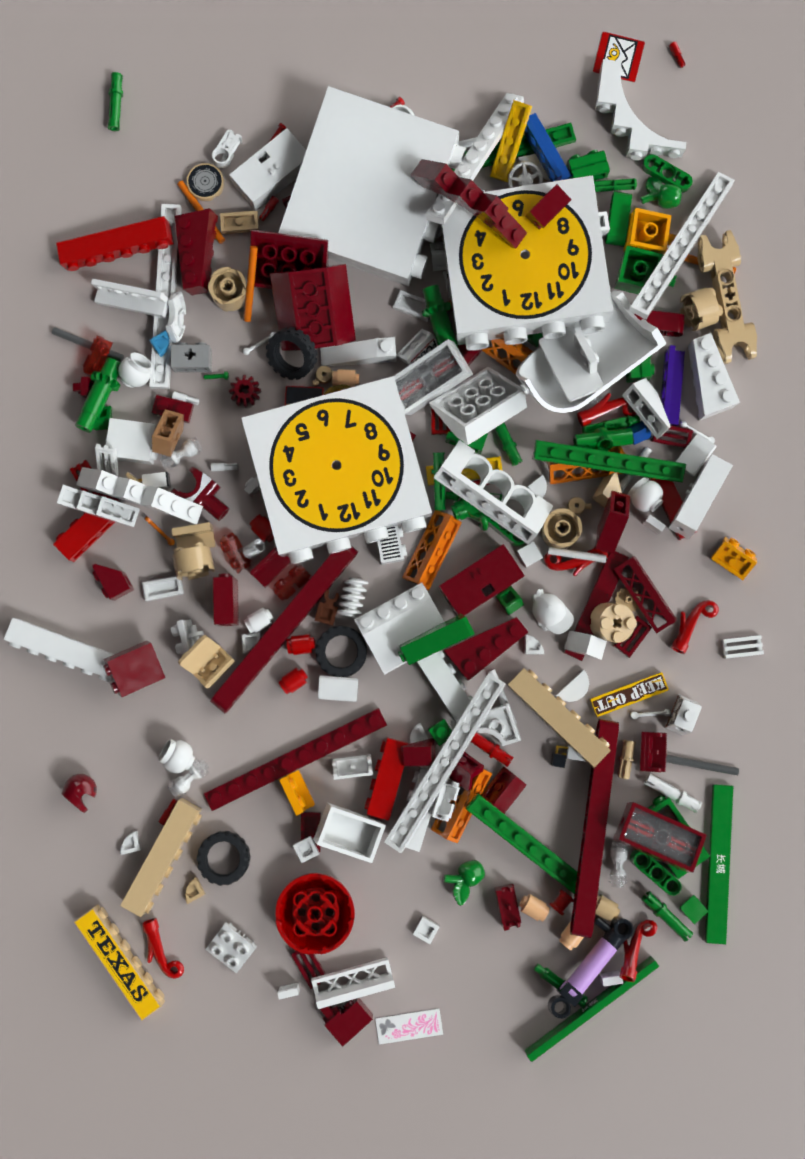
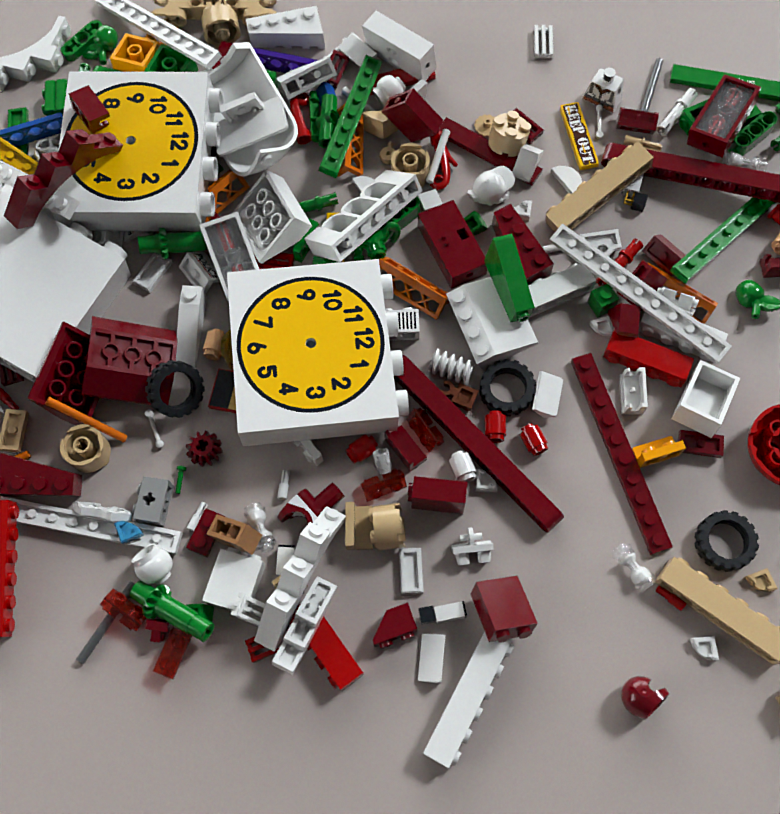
camera: 75 degrees left, 15 degrees down
(64, 403) = (172, 653): none -> clear red hinge
(91, 615) = (431, 658): none -> white slope
(128, 619) = (442, 613): none -> white piece
(130, 298) = (65, 559): white fence -> none
(170, 541) = (358, 555): orange hinge -> none
(176, 756) = (608, 576): white piece -> none
(206, 661) = (504, 526): tan bracket -> none
(306, 849) = (721, 447): white tile -> none
(322, 379) = (208, 370): tan piece -> none
(652, 591) = (483, 102): dark red fence -> none
(687, 626) = (519, 80): red plant -> none
(735, 558) = (460, 35): light orange bracket -> none

